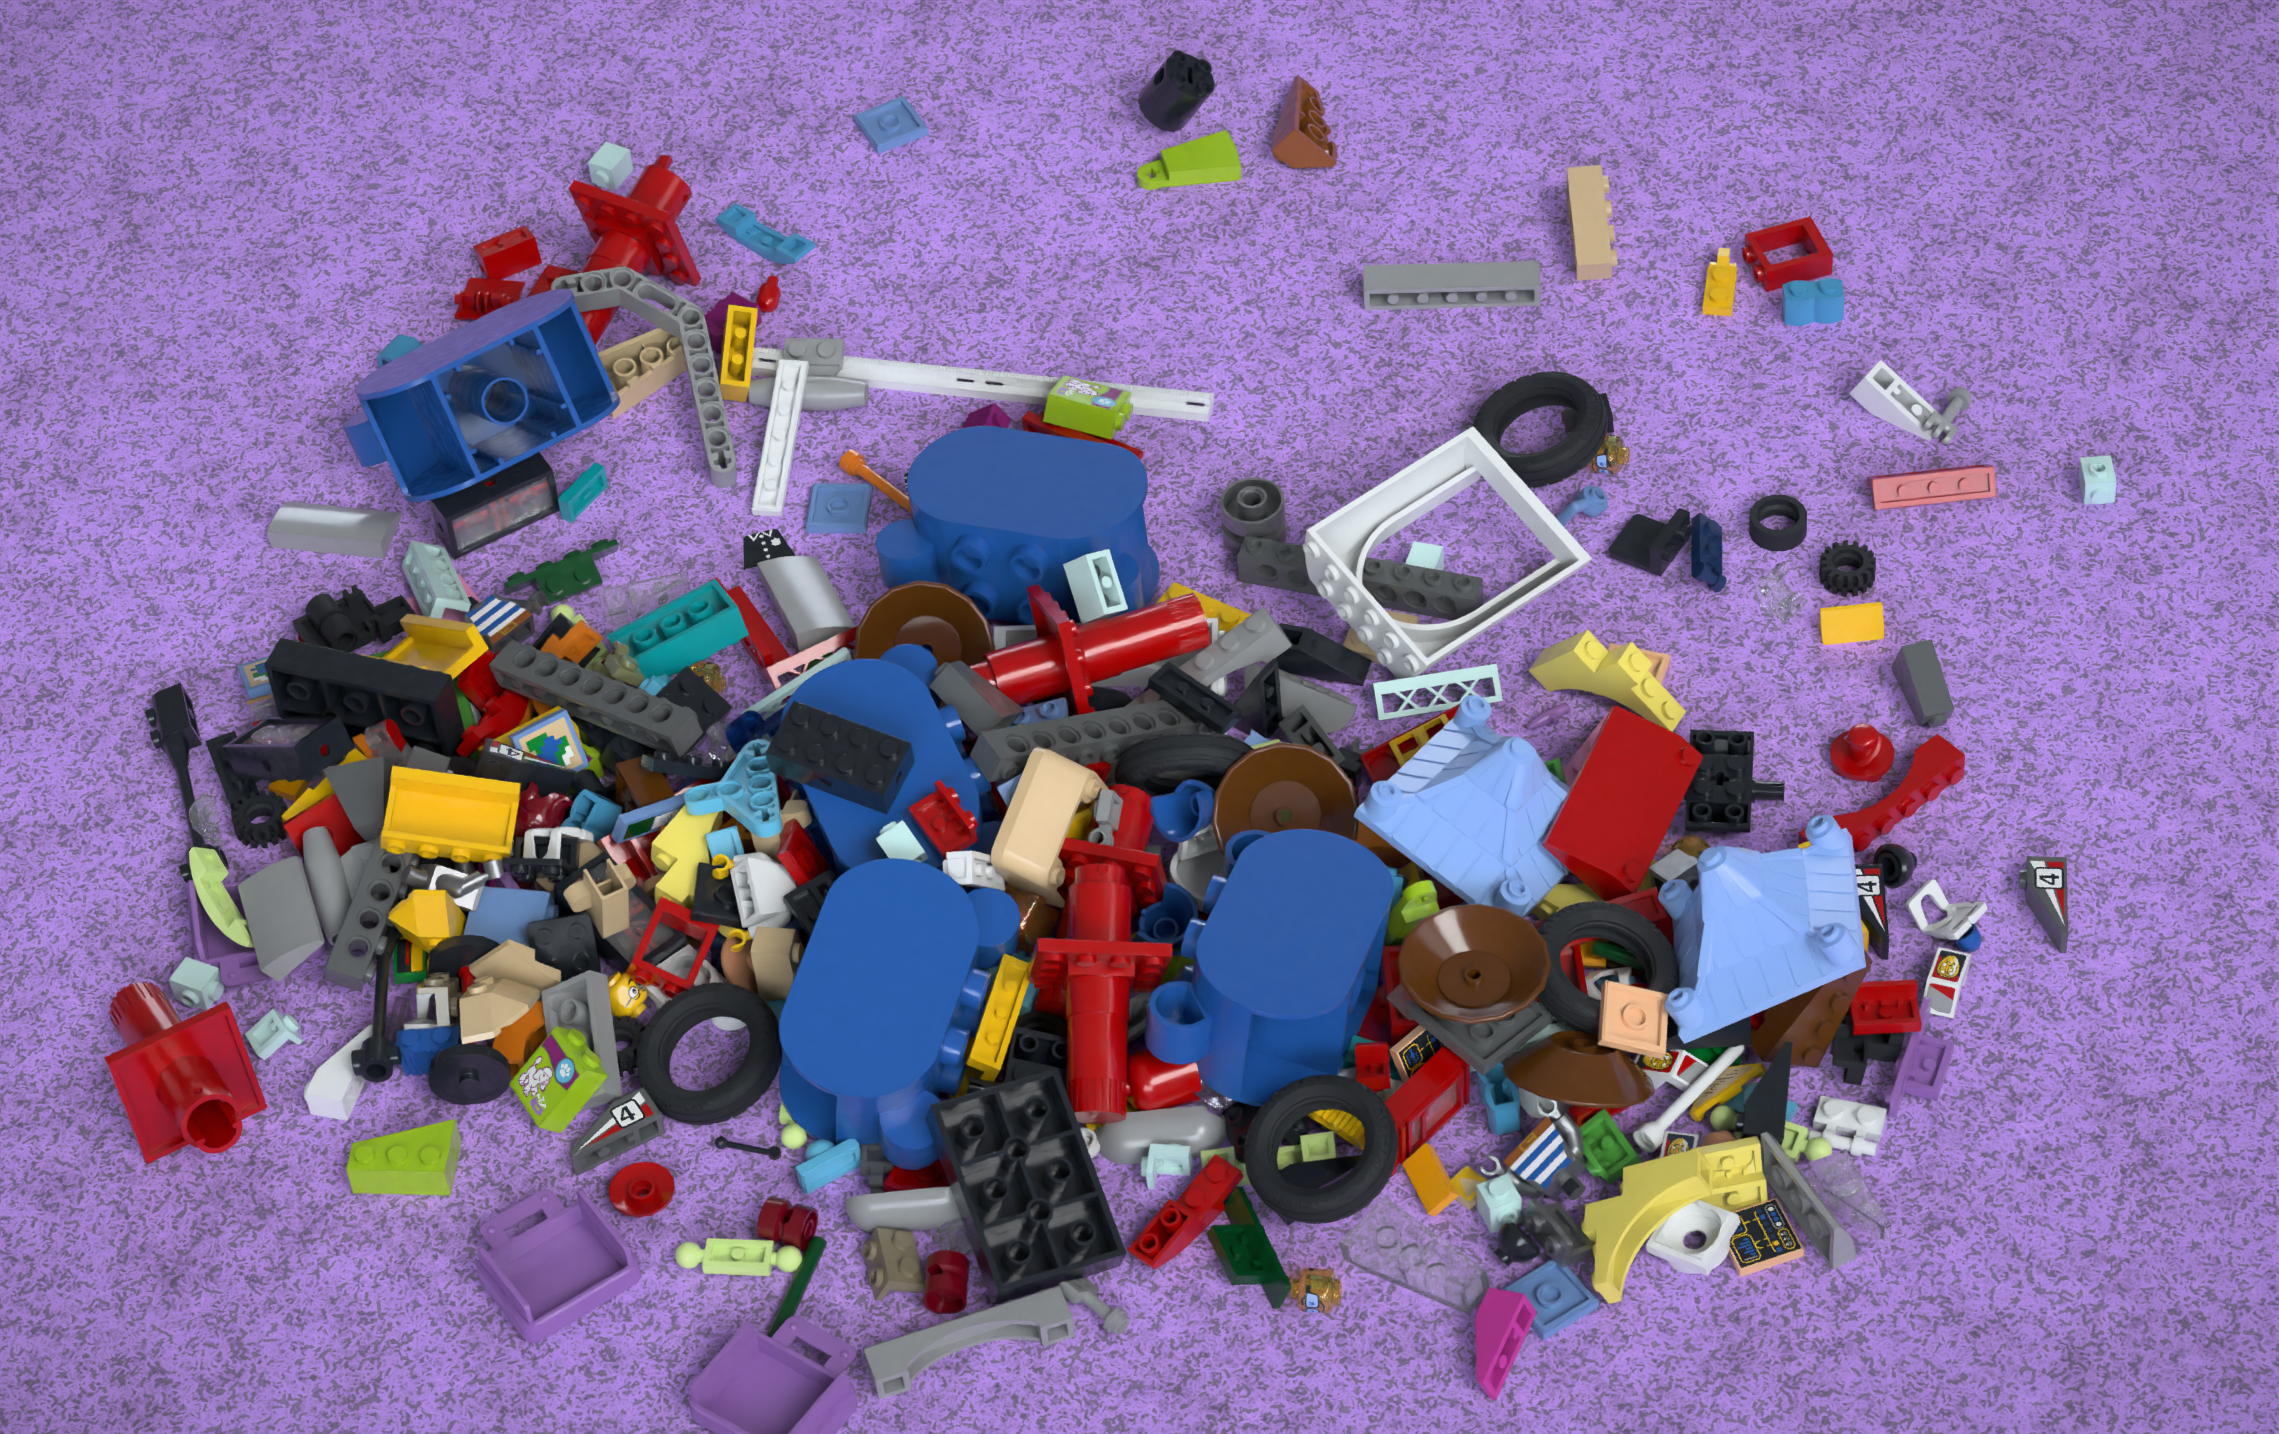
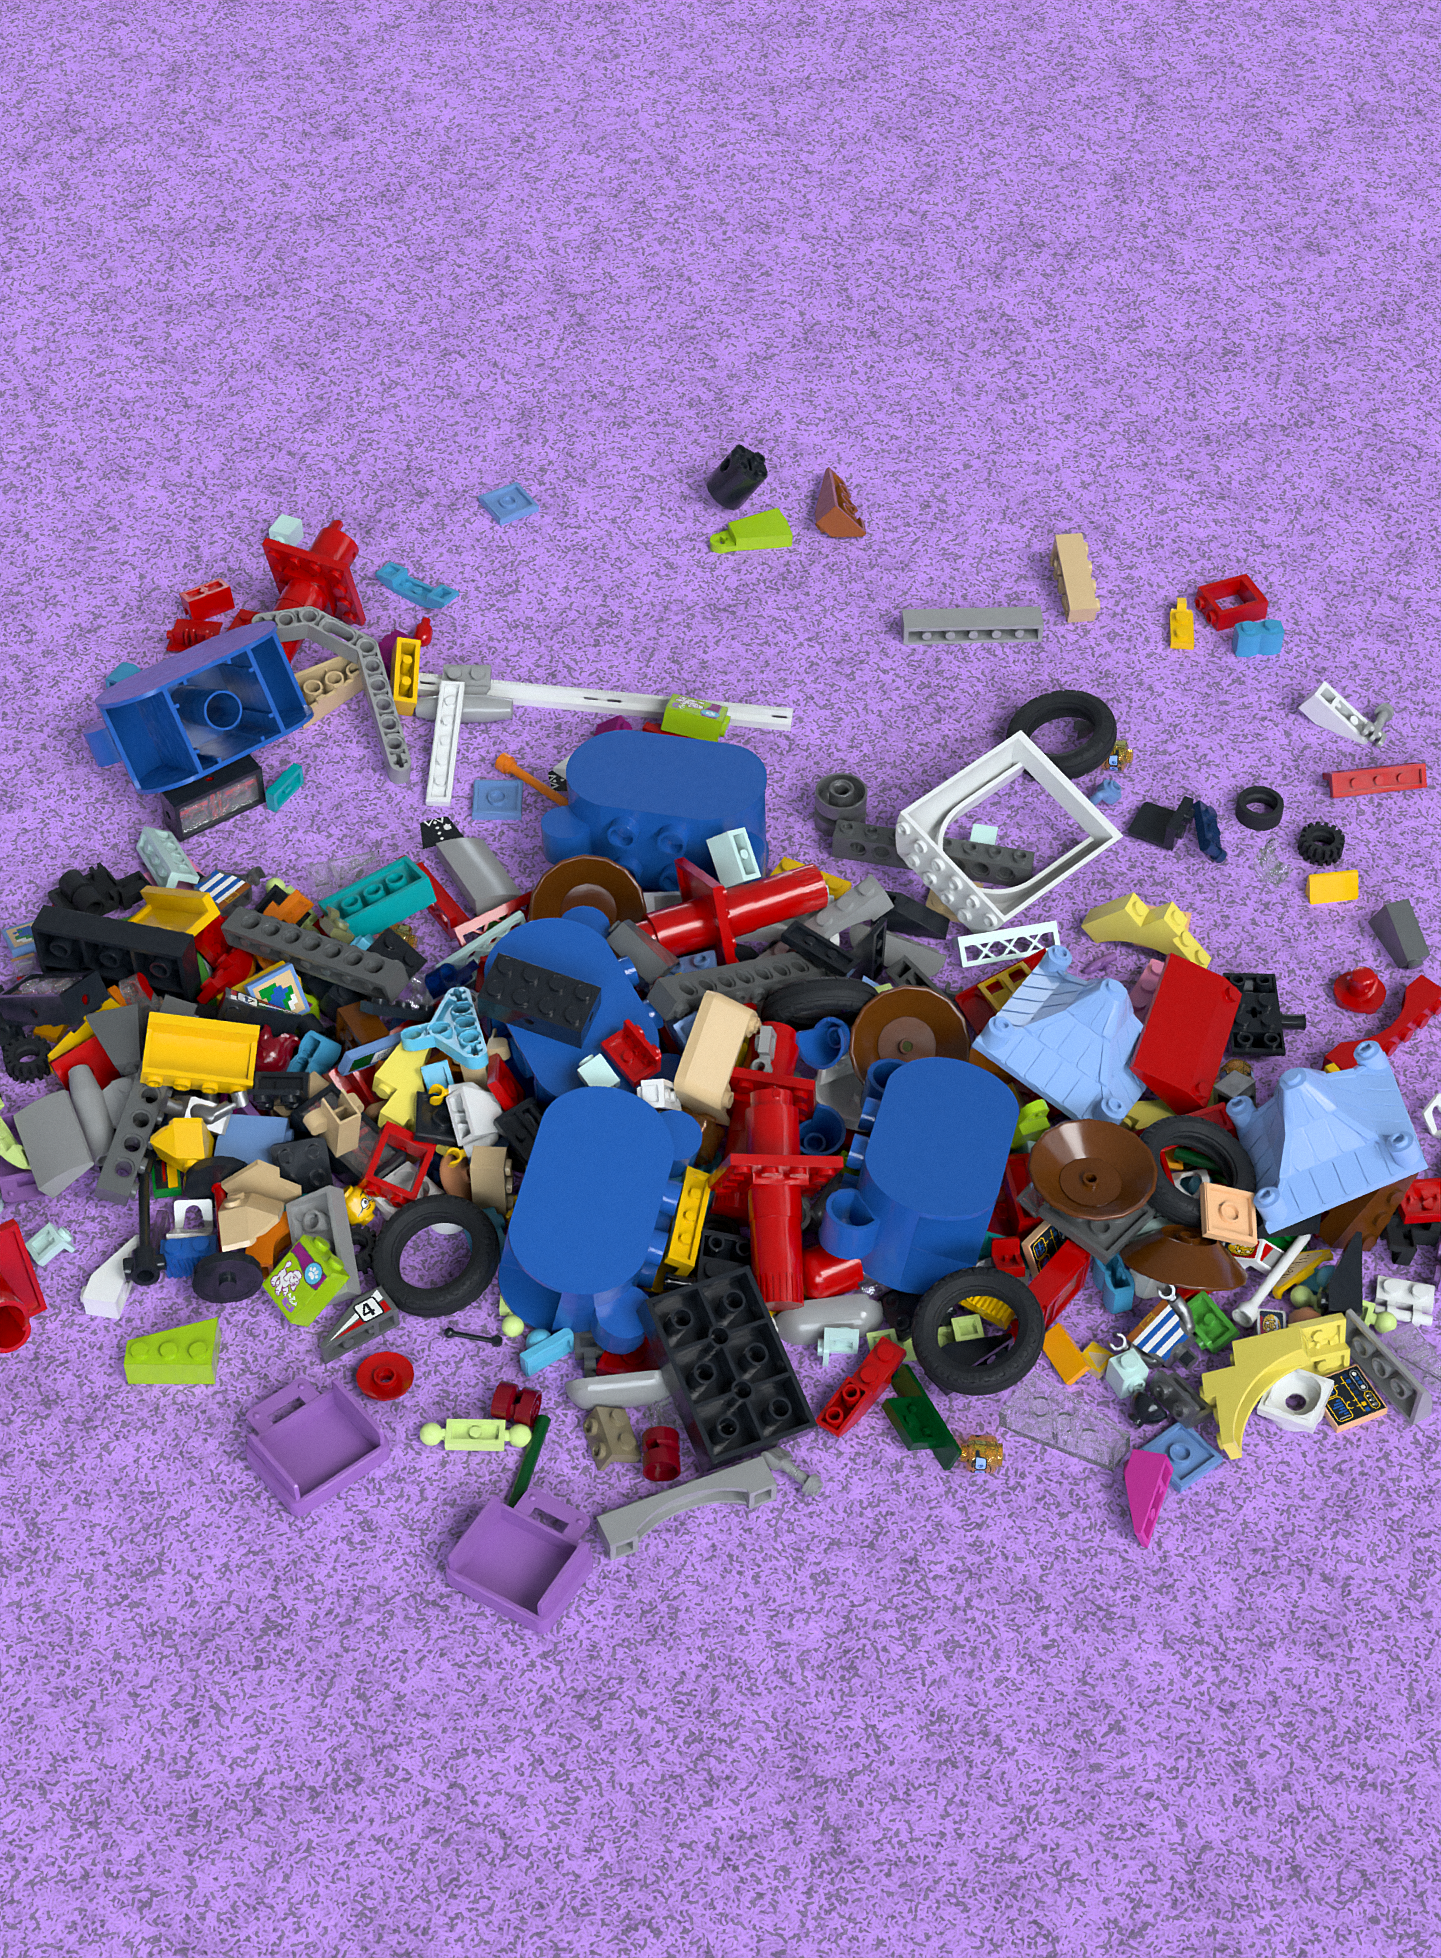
camera: 10 degrees left, 0 degrees up
(333, 529) = (76, 818): light grey slope -> none
(446, 996) = (204, 1210): dark tan bracket -> none
(555, 836) = (290, 1070): white piece -> none
(566, 577) = (277, 855): dark green bracket -> none
(1897, 864) = (1408, 1080): black brick -> none

